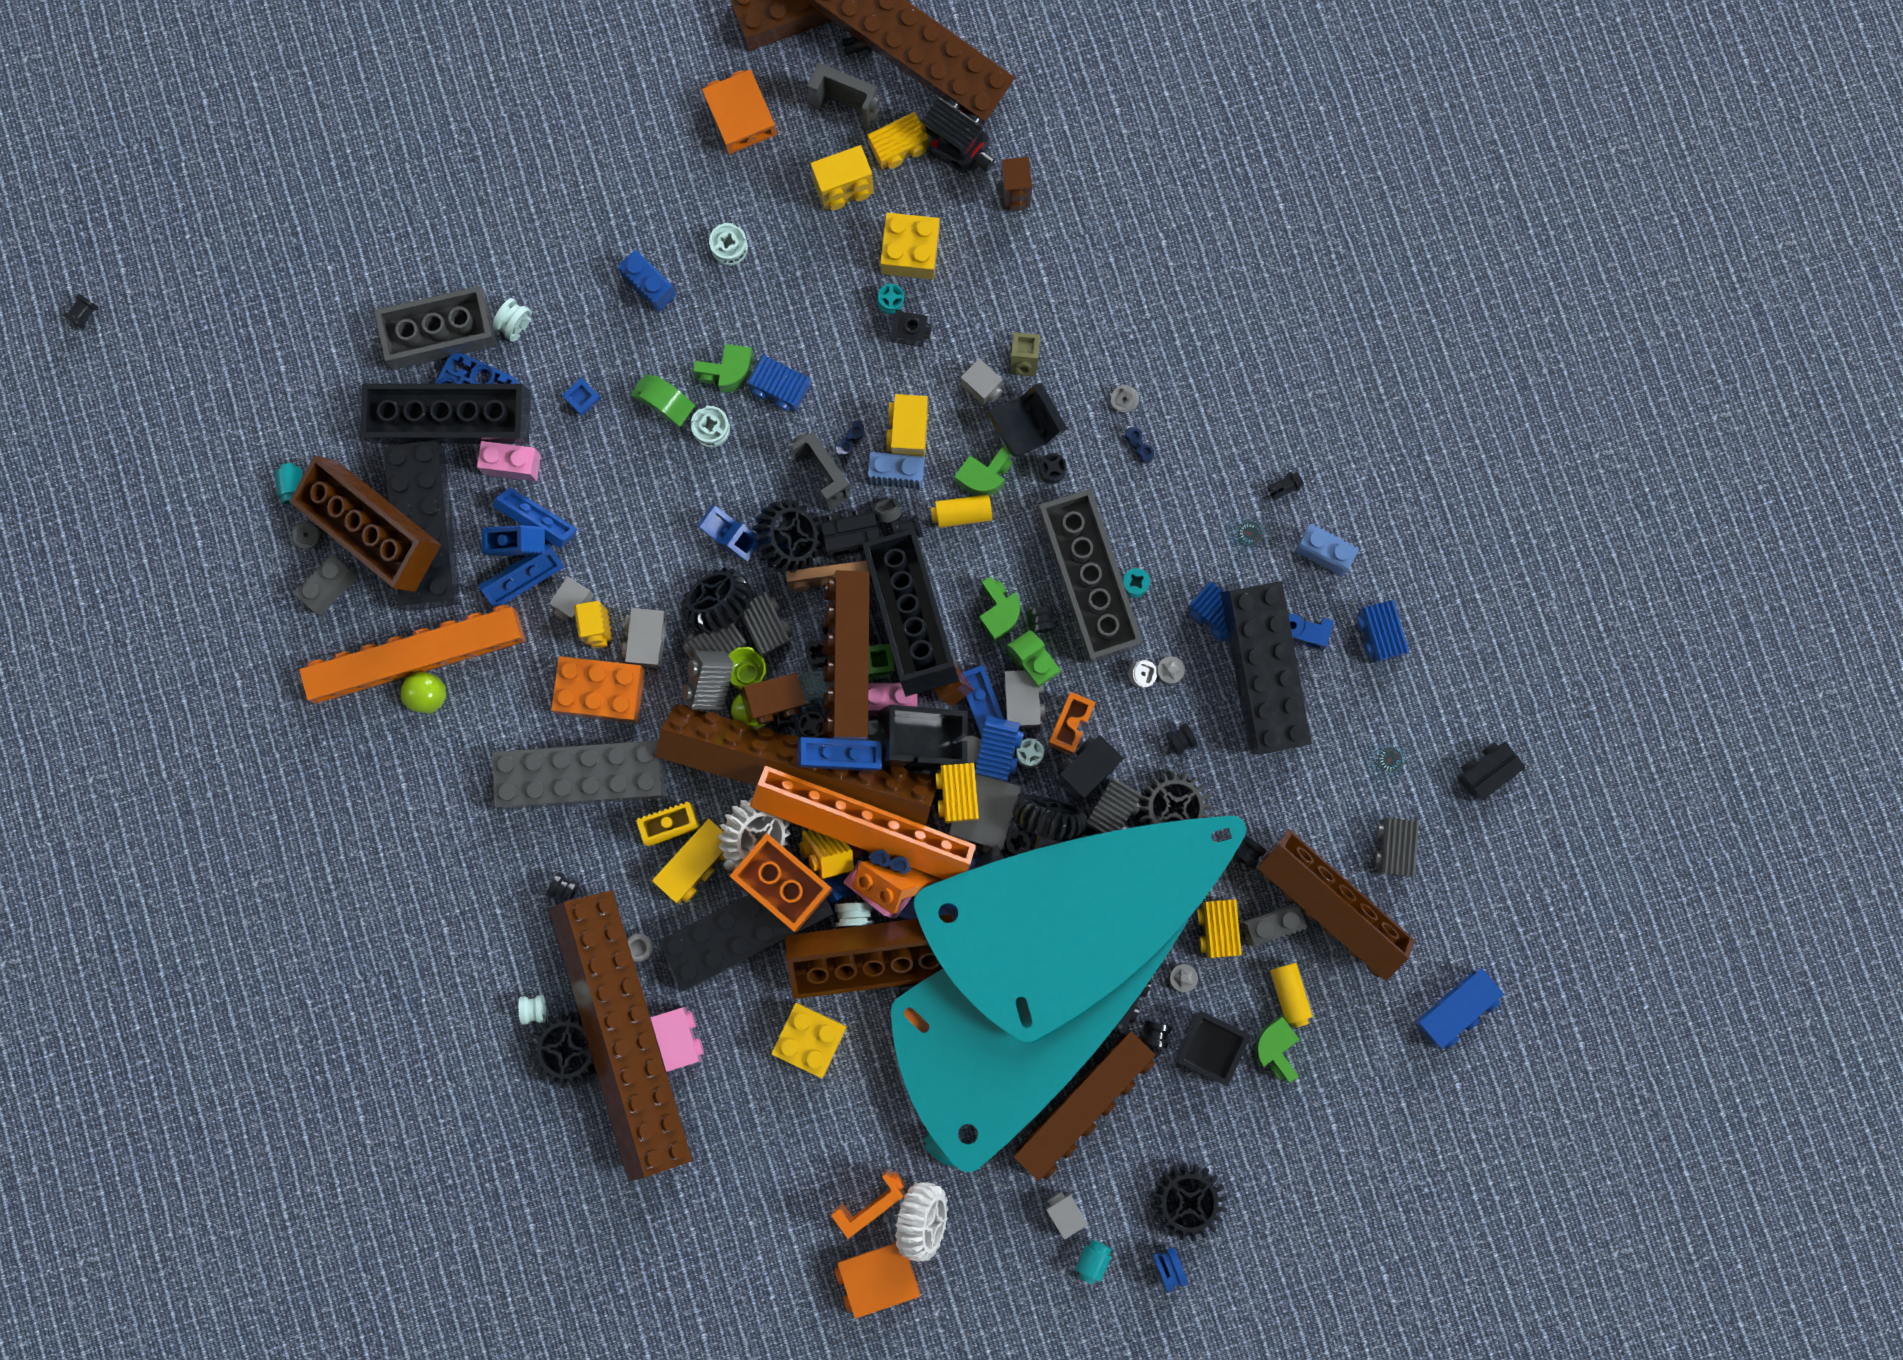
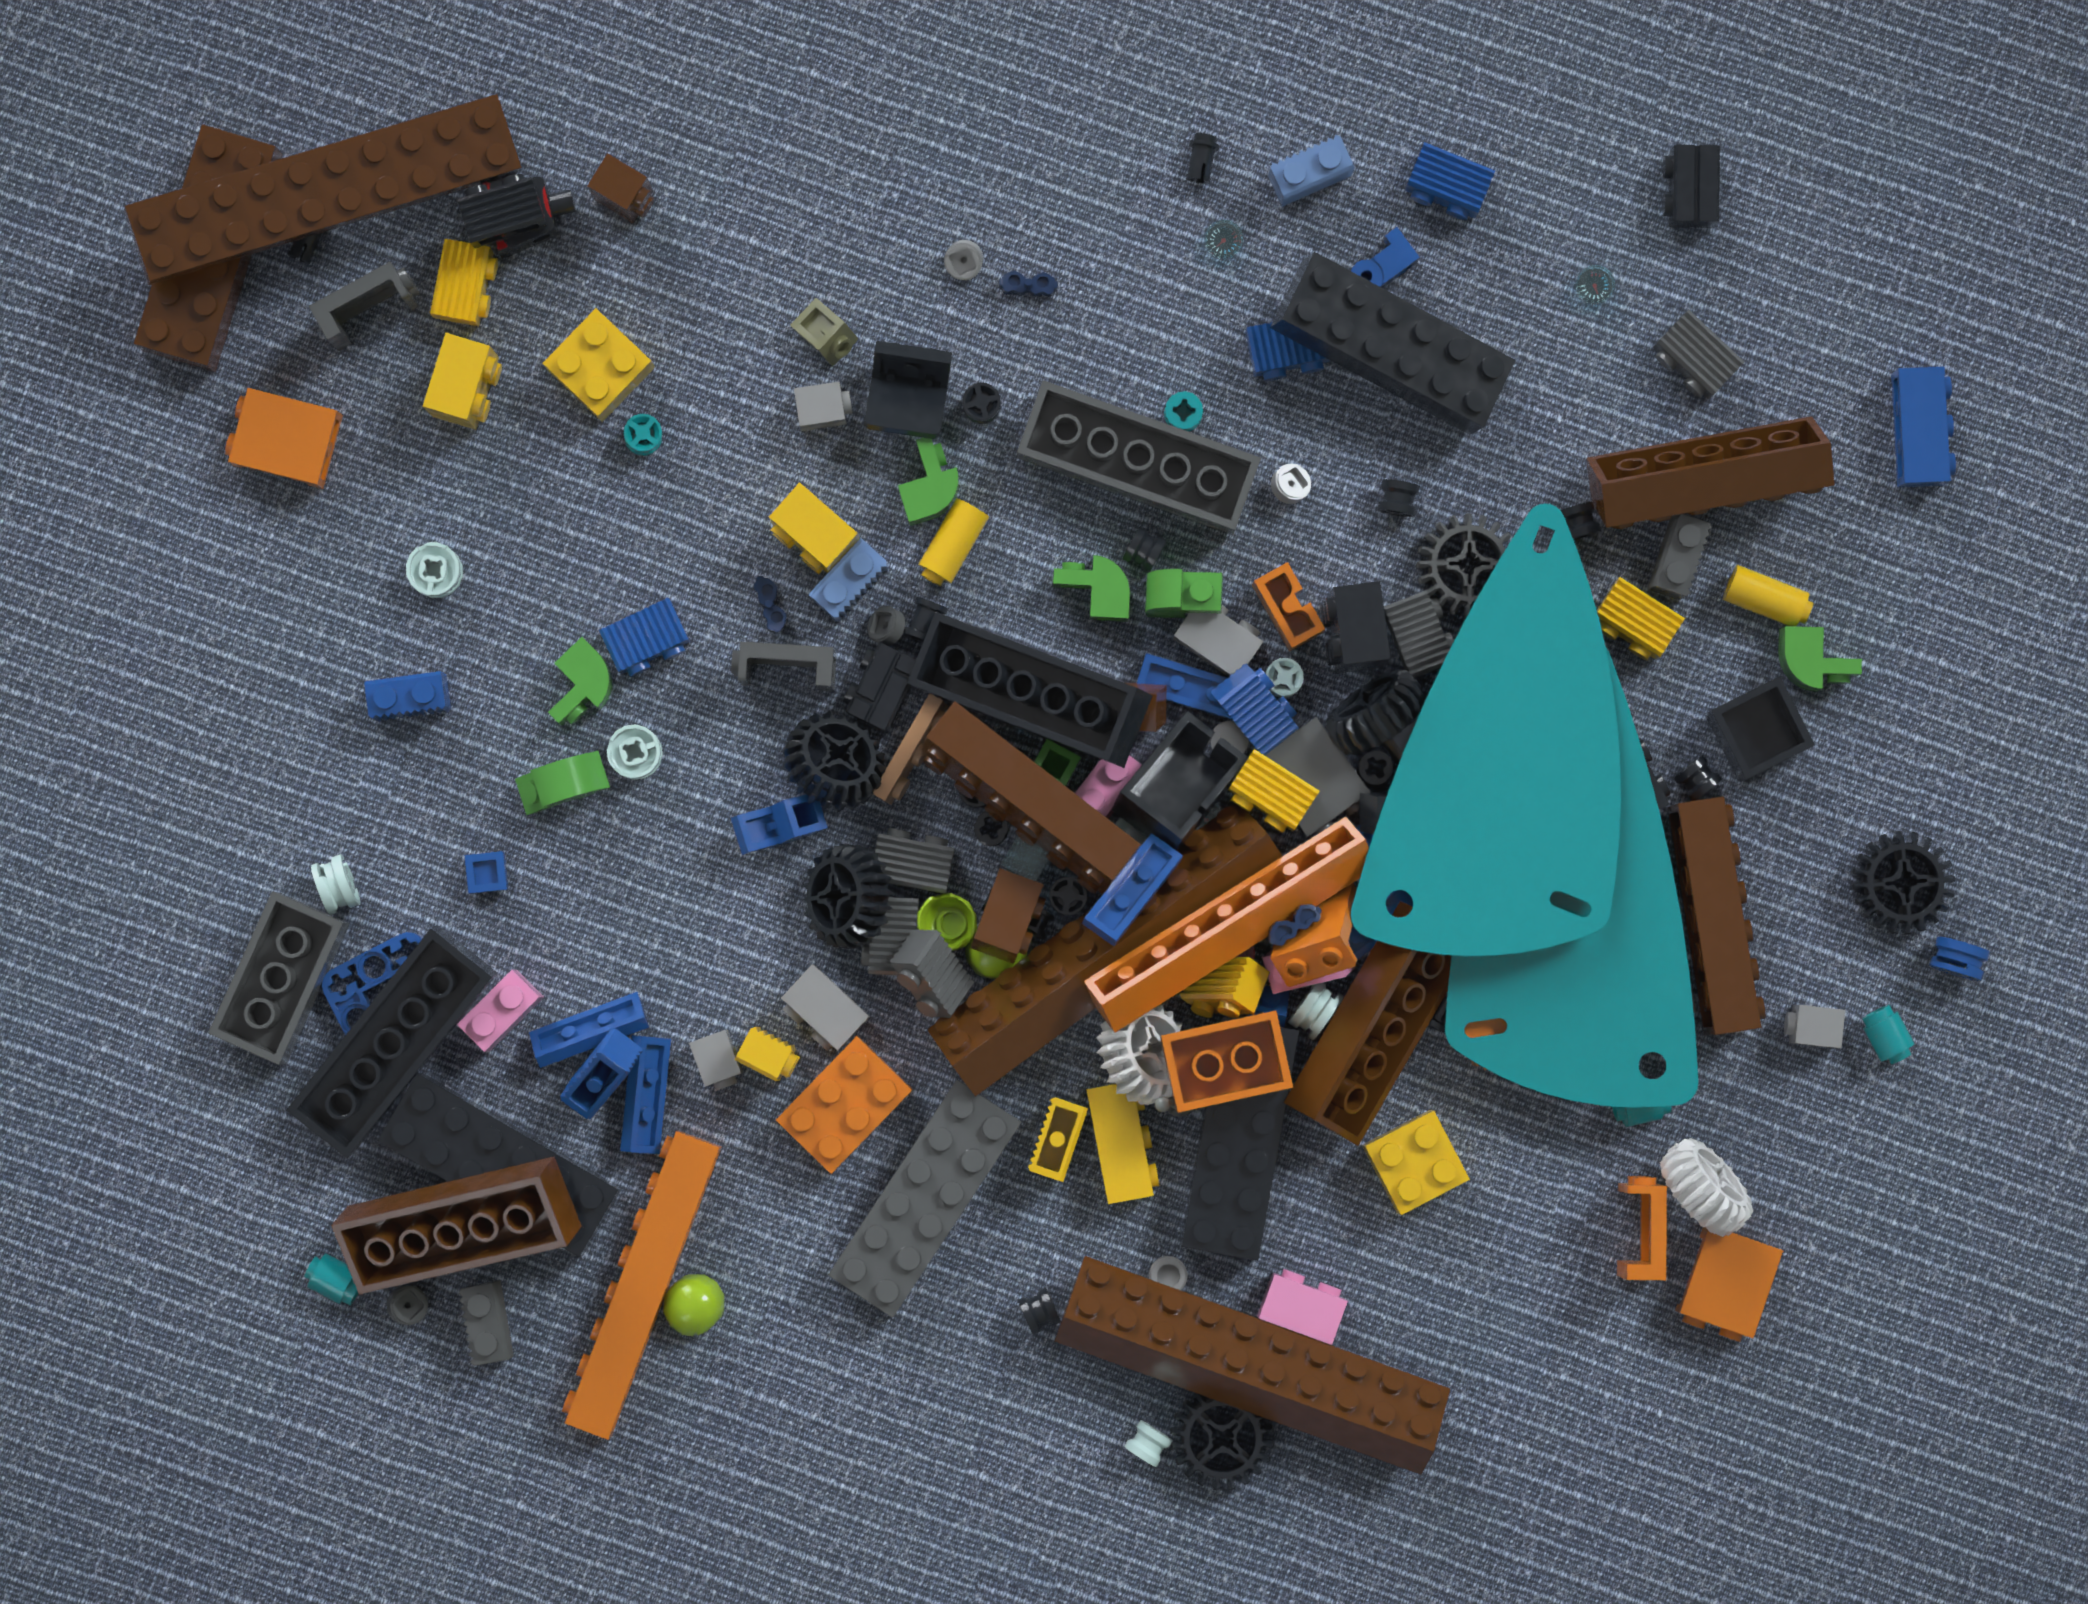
camera: 55 degrees left, 5 degrees up
(905, 336) = (696, 452): black brick -> none
(1170, 670) = (1310, 449): light grey tile -> none
(1183, 978) = (1659, 701): light grey tile -> none

